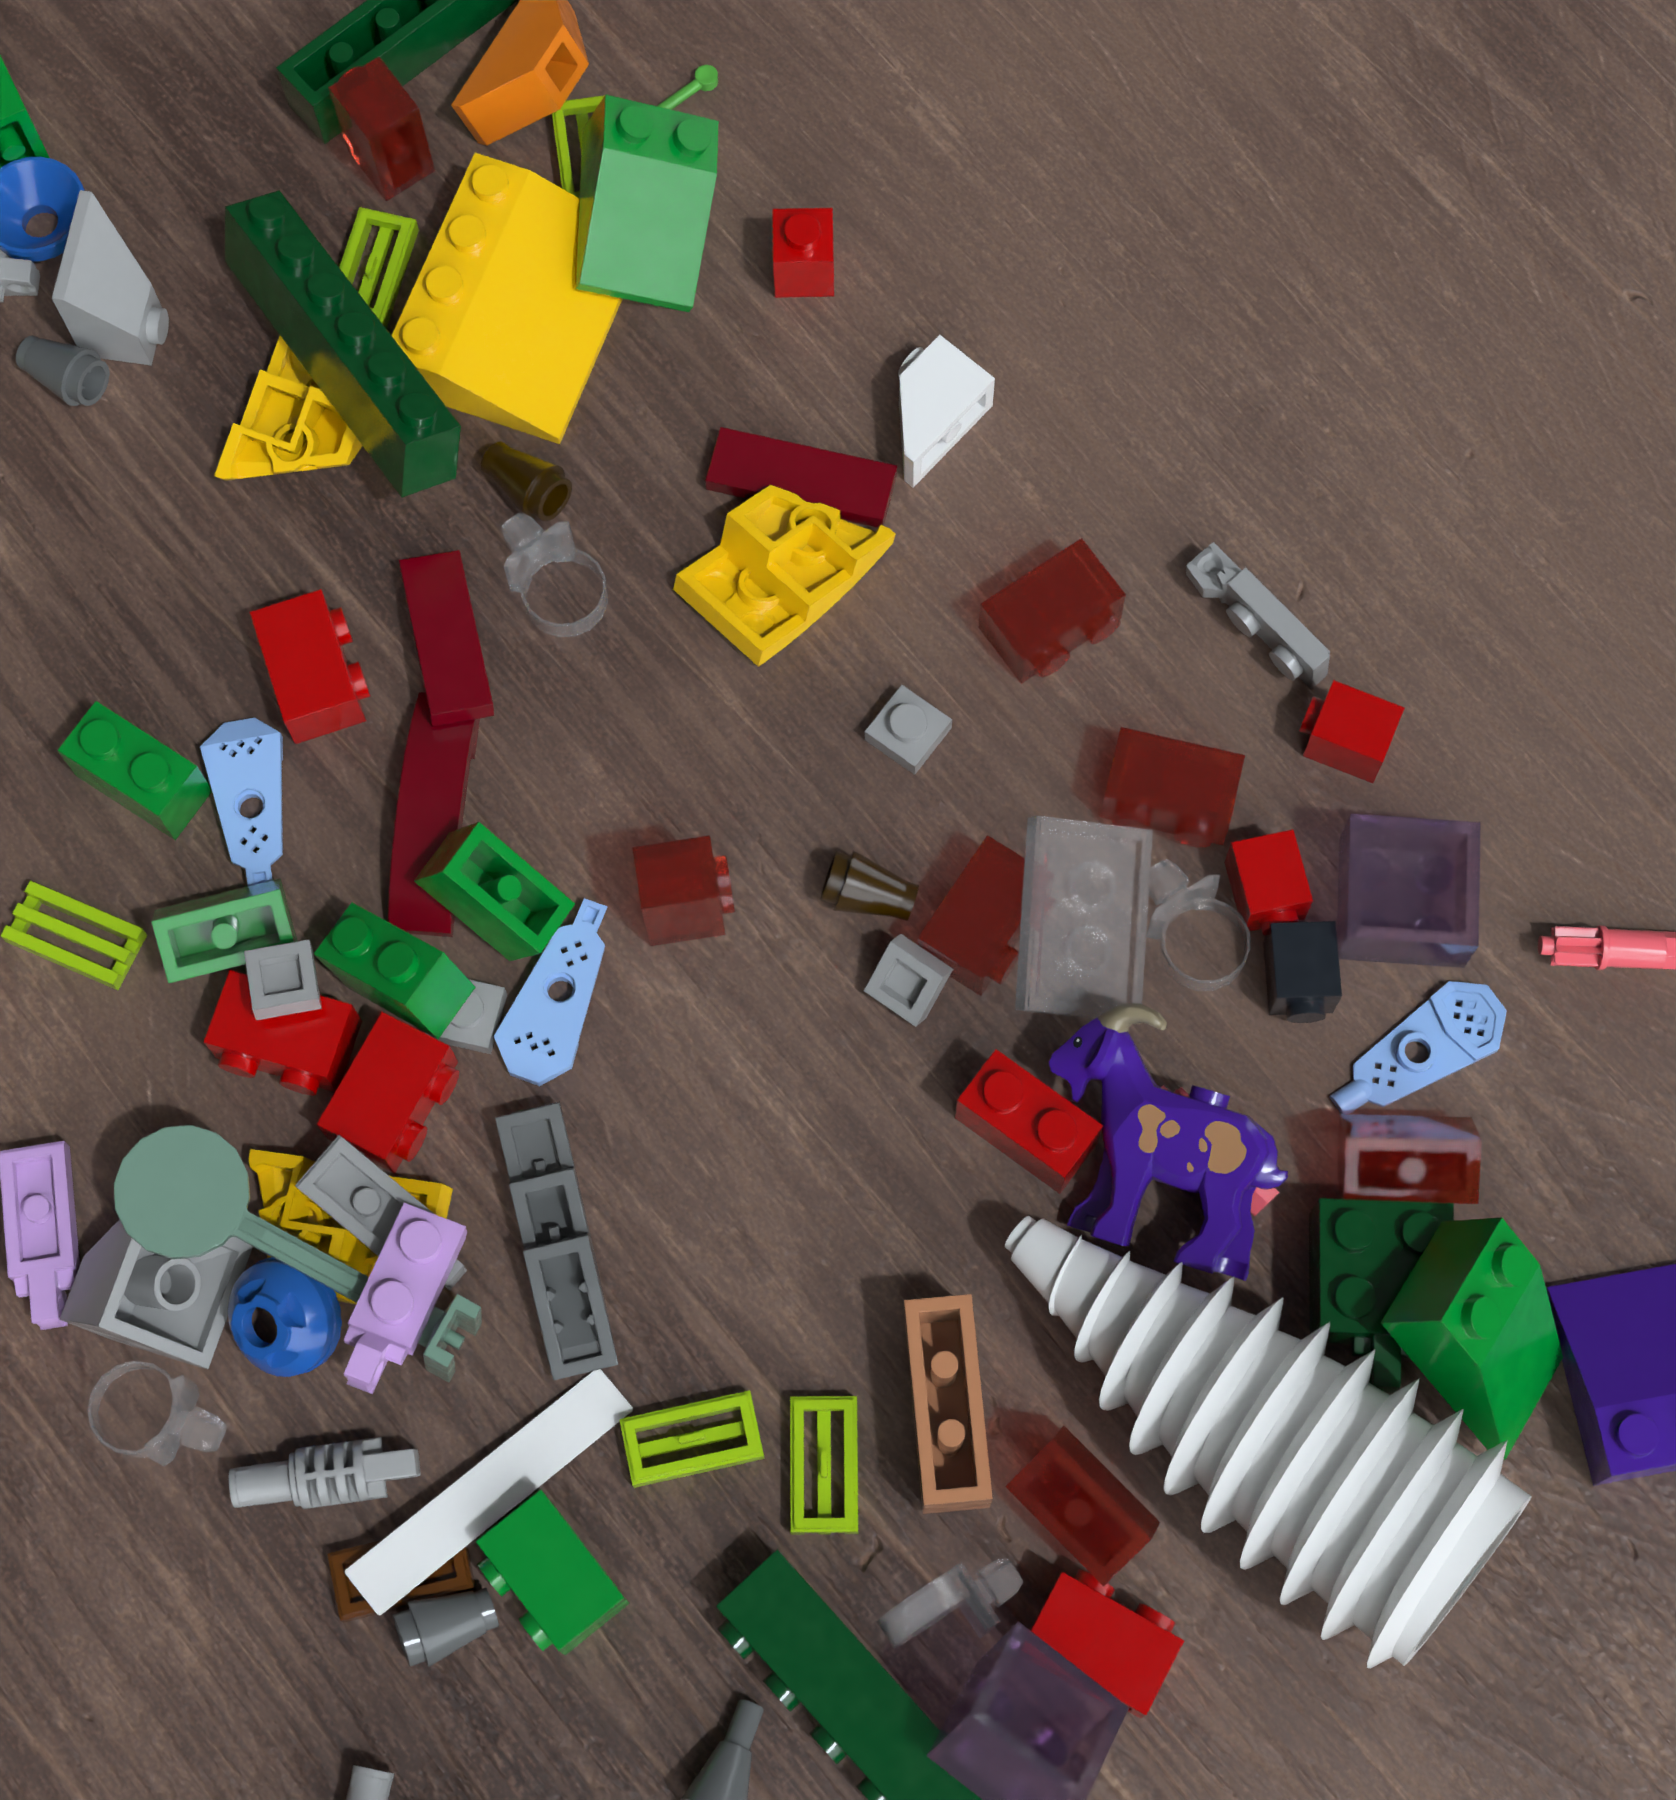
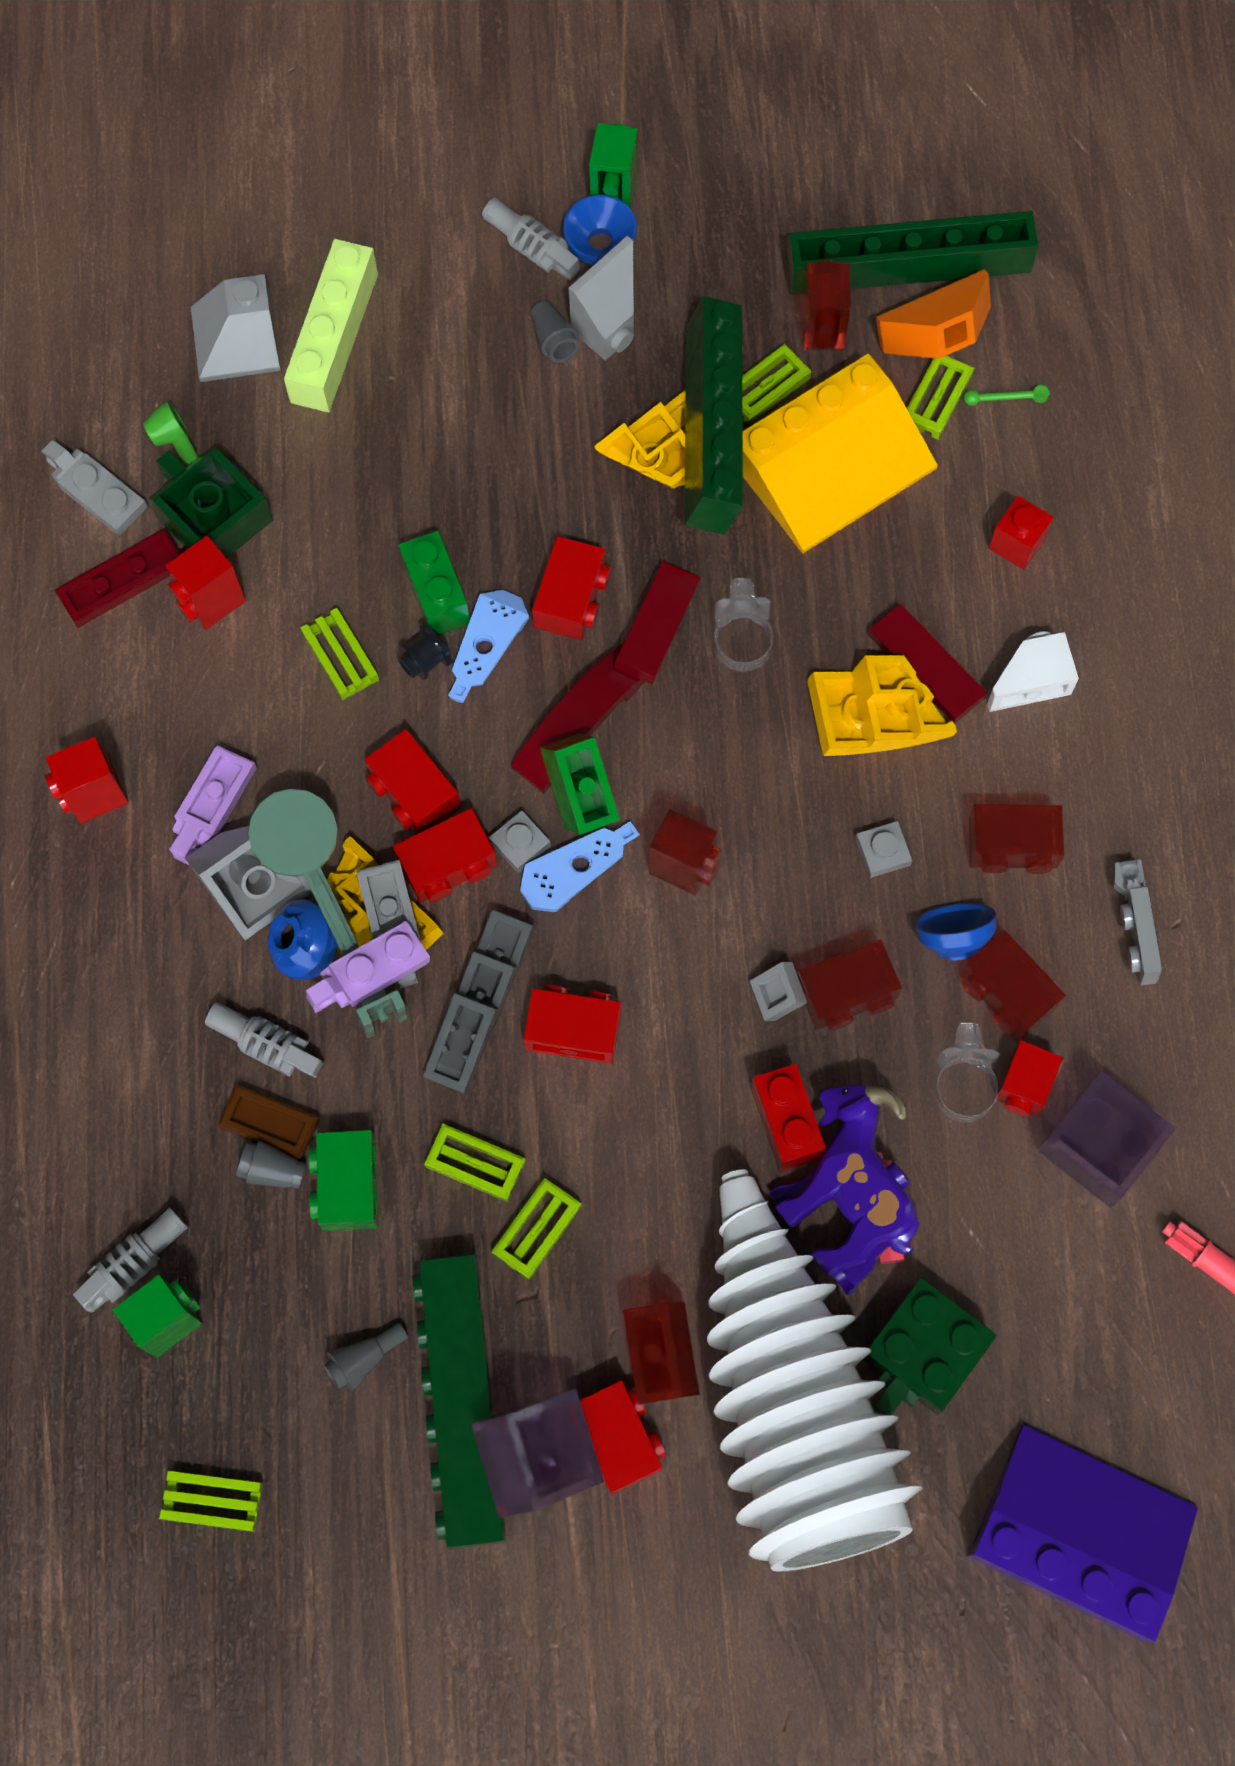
camera: 35 degrees right, 0 degrees up
(183, 864) = (423, 653): none -> black brick
(196, 1429) = (211, 960): clear piece -> none
(218, 929) = (419, 705): green brick -> none
(282, 979) = (428, 753): light grey plate -> none
(395, 970) = (495, 790): green brick -> none
(488, 1491) = (345, 1112): white sticker -> none
(530, 482) = (767, 564): dark brown cone -> none
(645, 202) = (947, 444): slope -> none
(693, 1188) = (573, 1024): none -> red brick
(867, 888) = (792, 922): dark brown cone -> none
(947, 1404) = (625, 1242): nougat brick -> none
(954, 1589) = (550, 1346): clear piece -> none
(1063, 764) = (956, 929): none -> blue piece
(1082, 917) = (903, 1024): clear tile -> none
(1302, 970) = (1011, 1143): black brick -> none
(1350, 730) = (1143, 1024): red brick -> none
(1409, 1158) = (991, 1292): clear red brick -> none
(1440, 1033) = (1067, 1243): light blue piece -> none
(1479, 1326) = (958, 1416): green slope -> none

